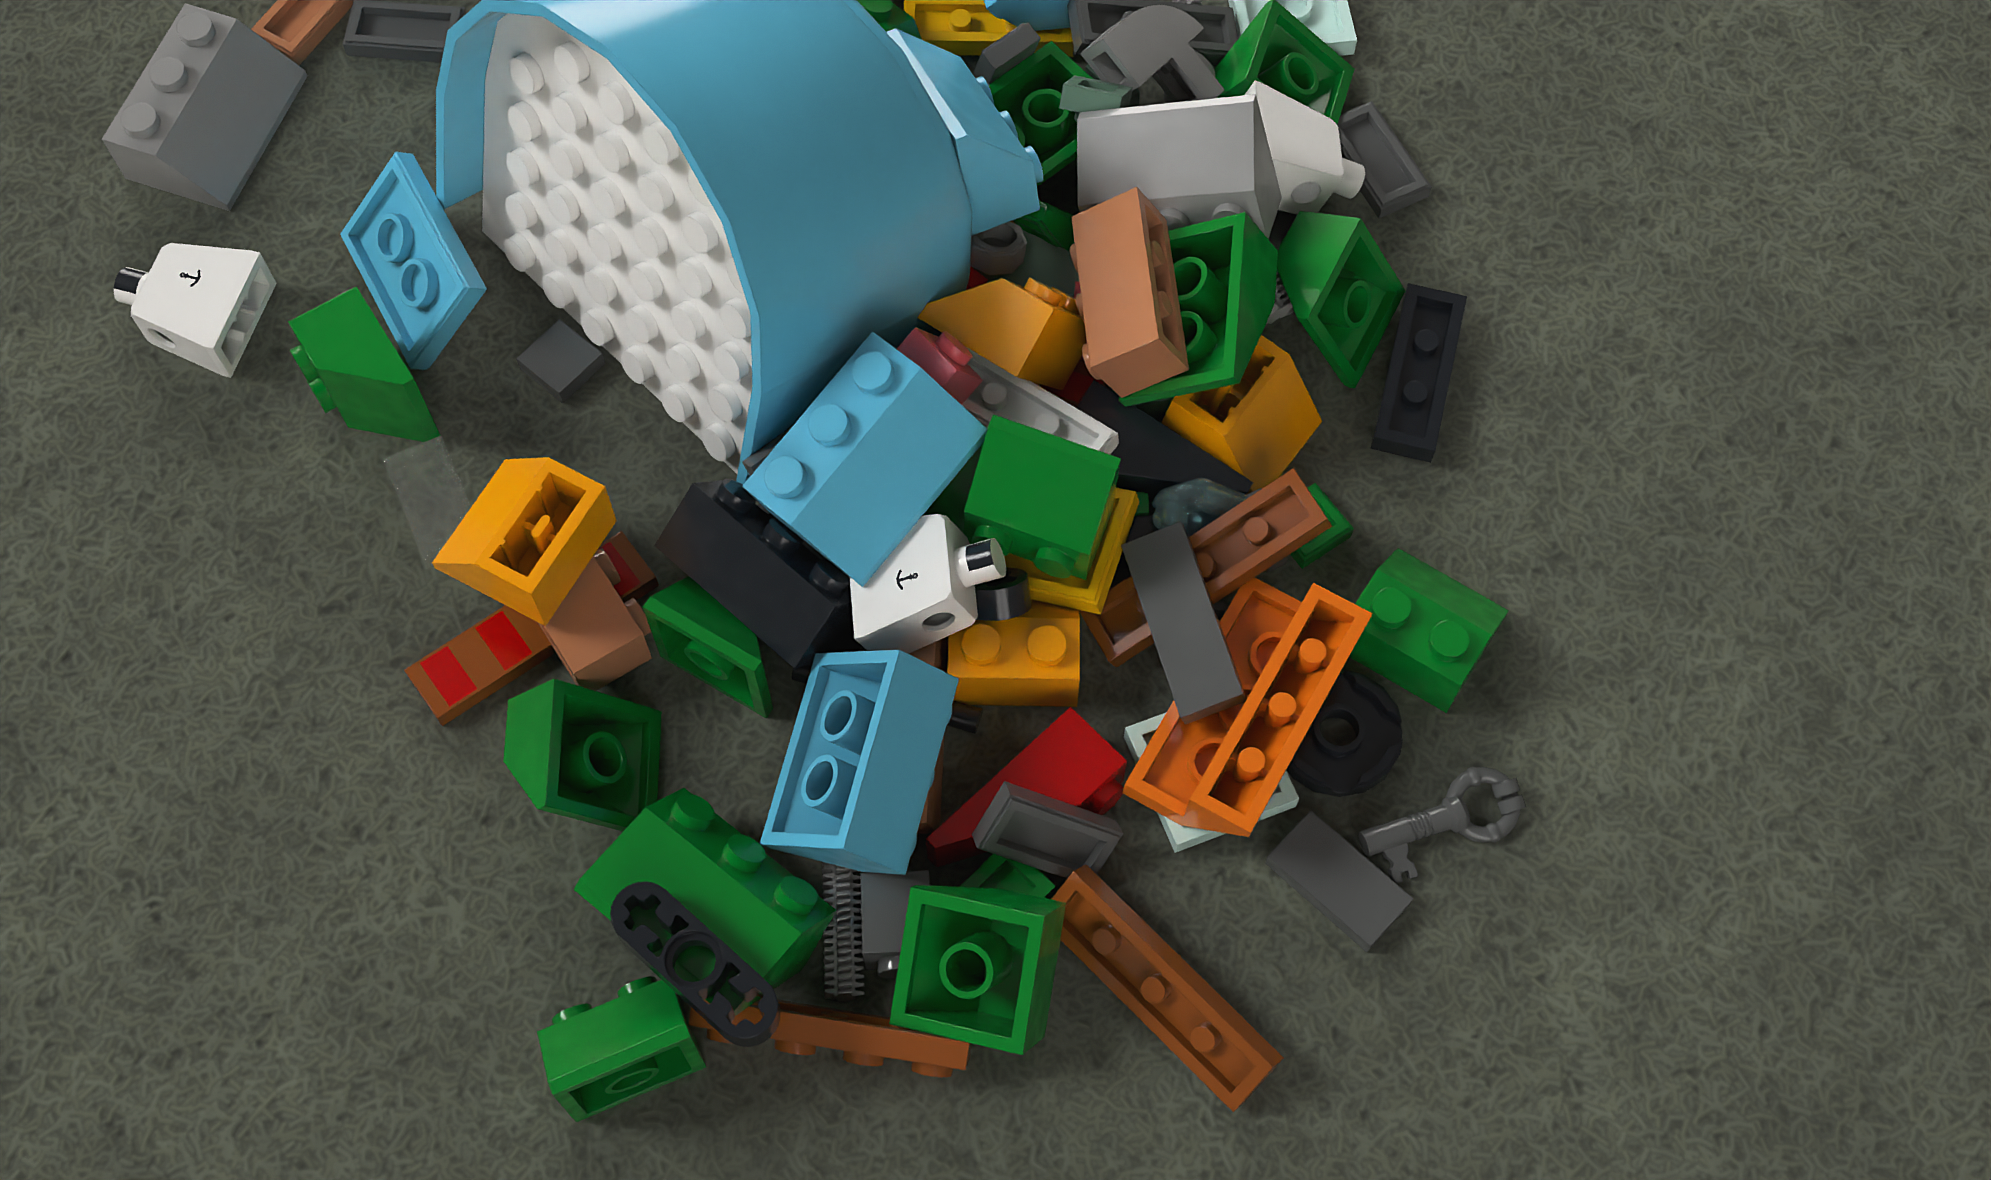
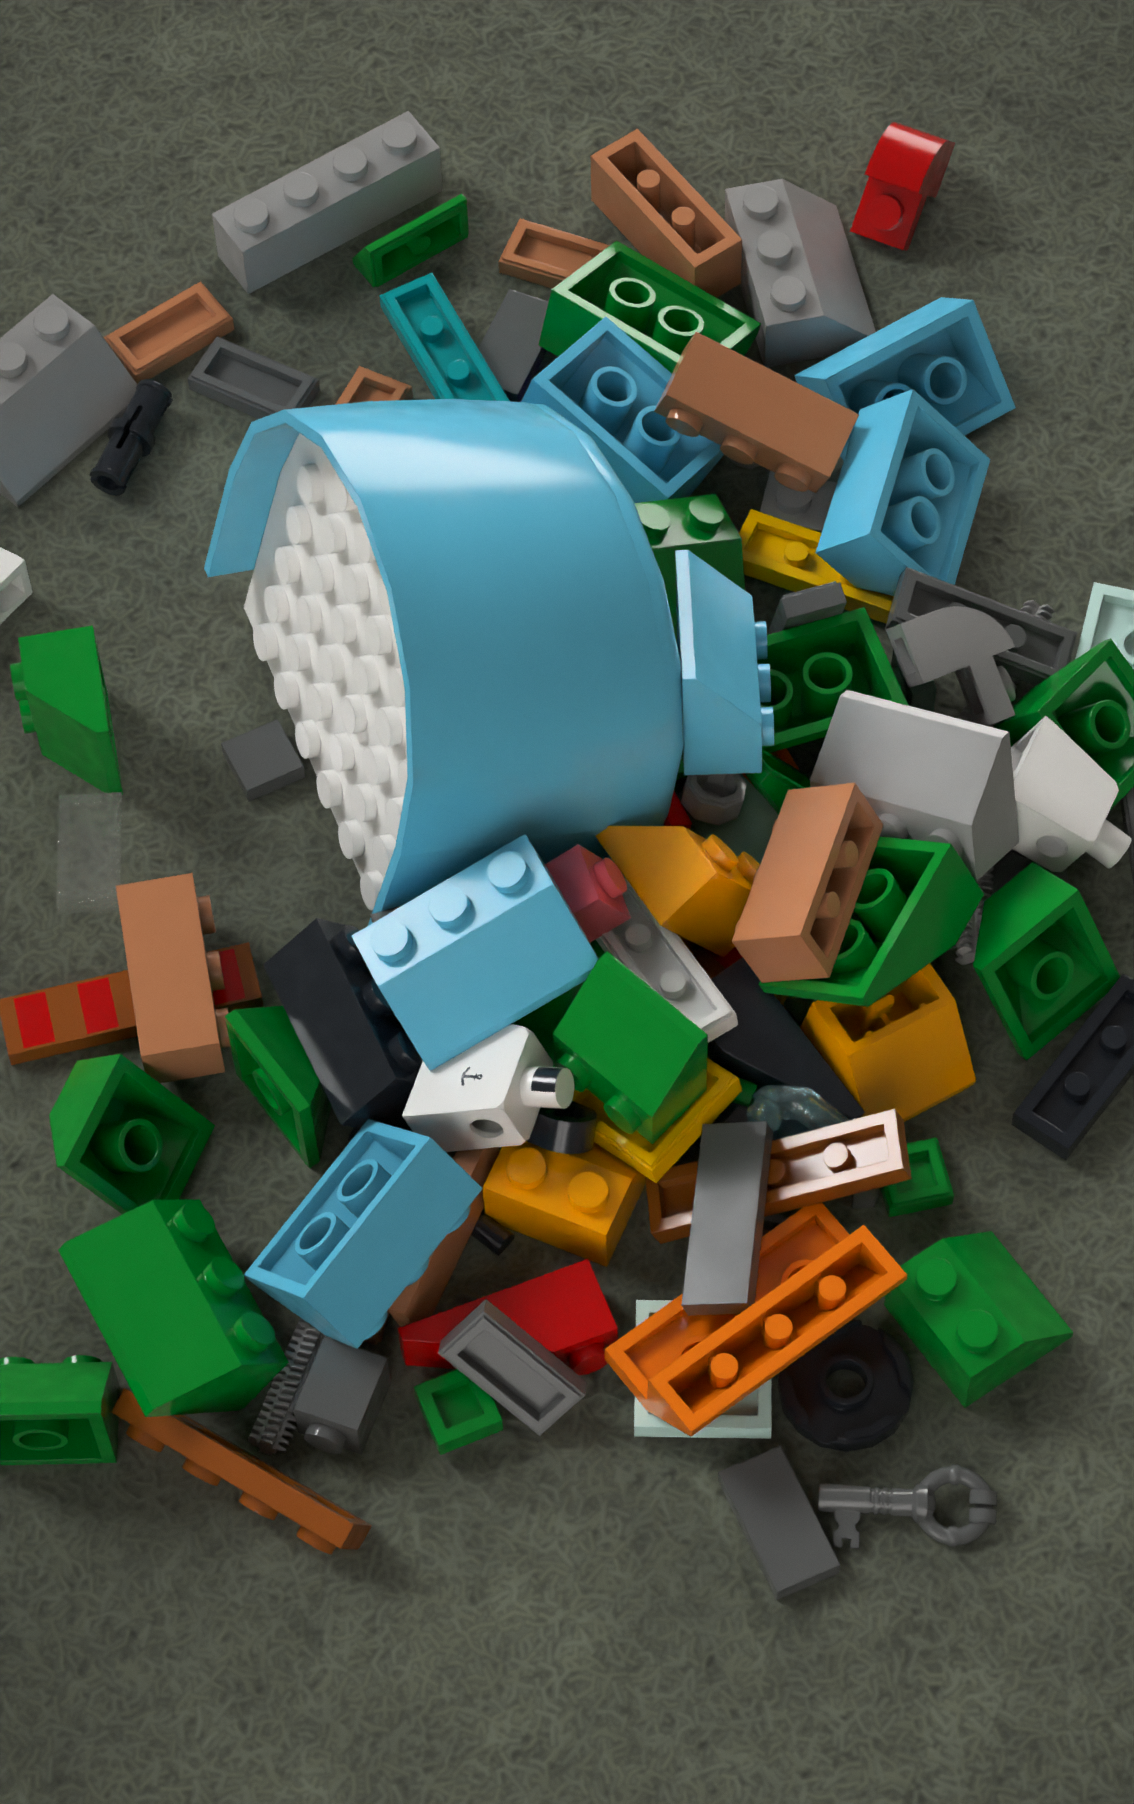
camera: 25 degrees right, 5 degrees down
(312, 112) = (131, 437): none -> black pin
(412, 261) = (161, 616): medium azure tile -> none
(529, 535) = (151, 915): light orange slope -> none
(672, 914) = (134, 1402): black beam -> none
(978, 965) = (394, 1459): green slope -> none
(1088, 94) = (873, 677): sand green plate -> none
(1163, 990) = (558, 1550): dark orange plate -> none

